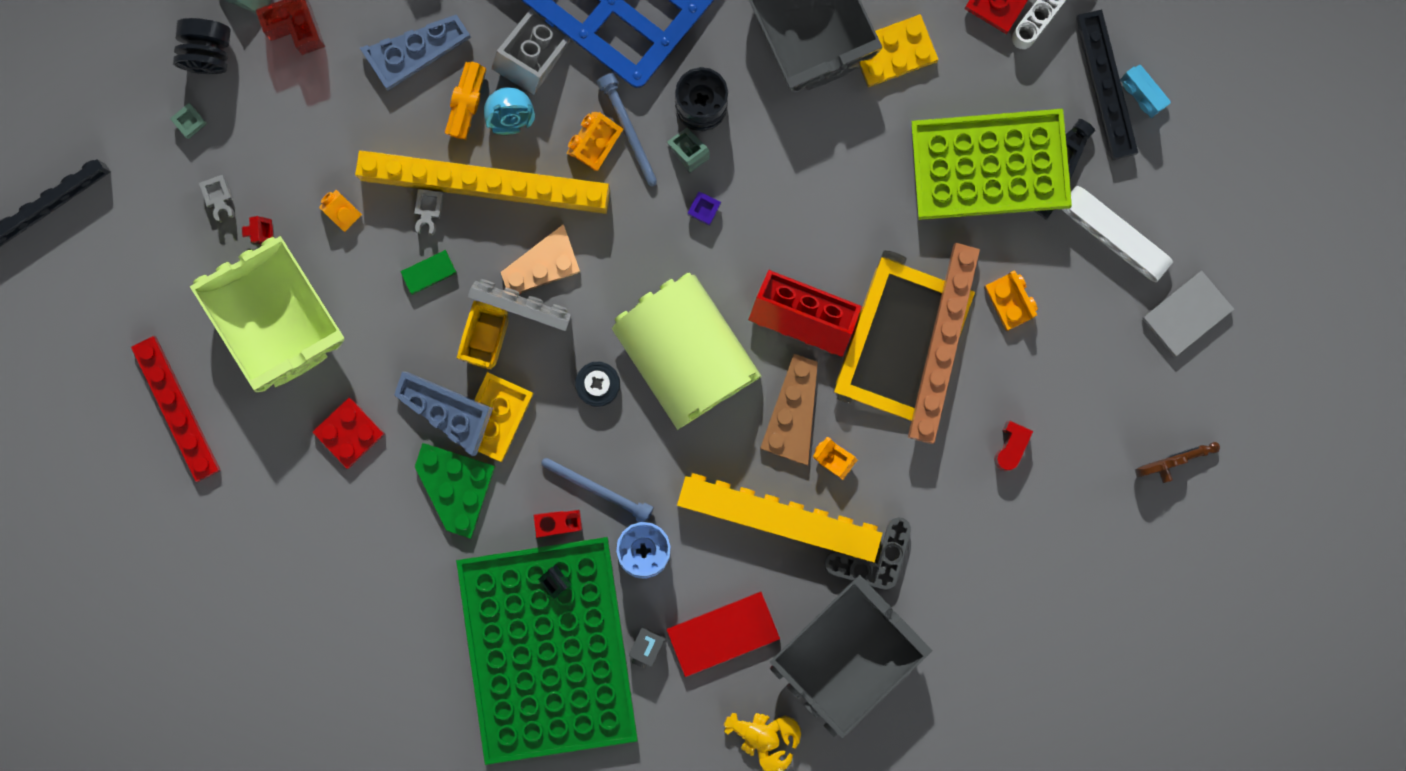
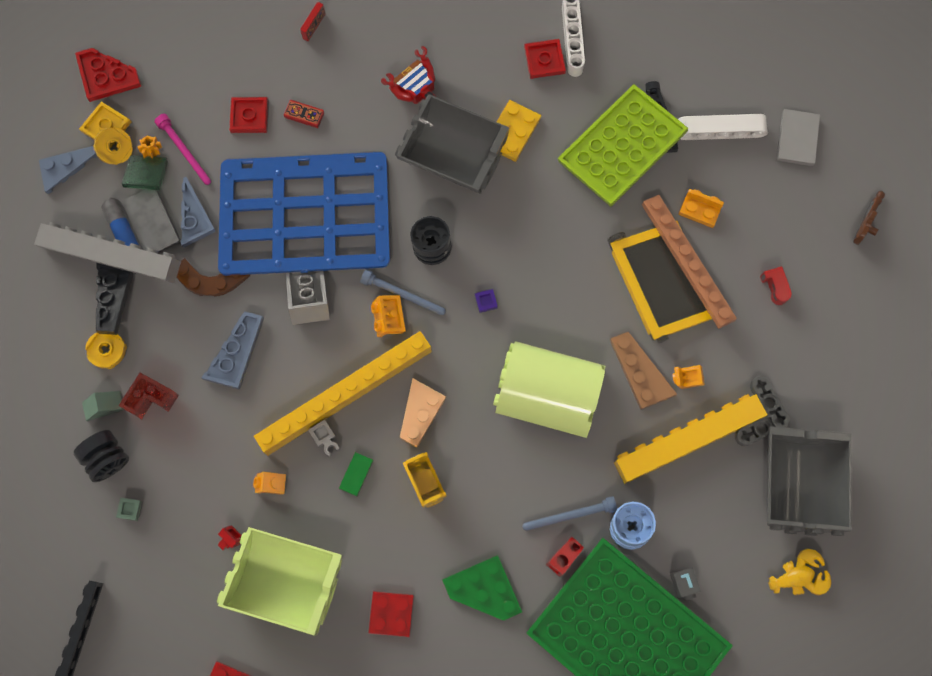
camera: 45 degrees left, 10 degrees down
(216, 194) = (184, 538): light grey plate -> none
(451, 412) = (446, 544): sand blue wing -> none
(465, 100) = (292, 355): light orange piece -> none
(508, 110) = (323, 339): medium azure cylinder -> none
(508, 406) = (472, 525): yellow plate -> none
(510, 301) = (437, 440): light grey plate -> none
(554, 581) = (597, 592): black slope -> none
(601, 391) = (513, 459): black wheel -> none
(689, 149) = (448, 275): sand green slope -> none
(723, 634) = (720, 535): red tile -> none
(805, 313) = (597, 310): red slope -> none
(1107, 84) = (643, 55): black plate -> none
(1145, 91) = (666, 43): medium azure bracket -> none

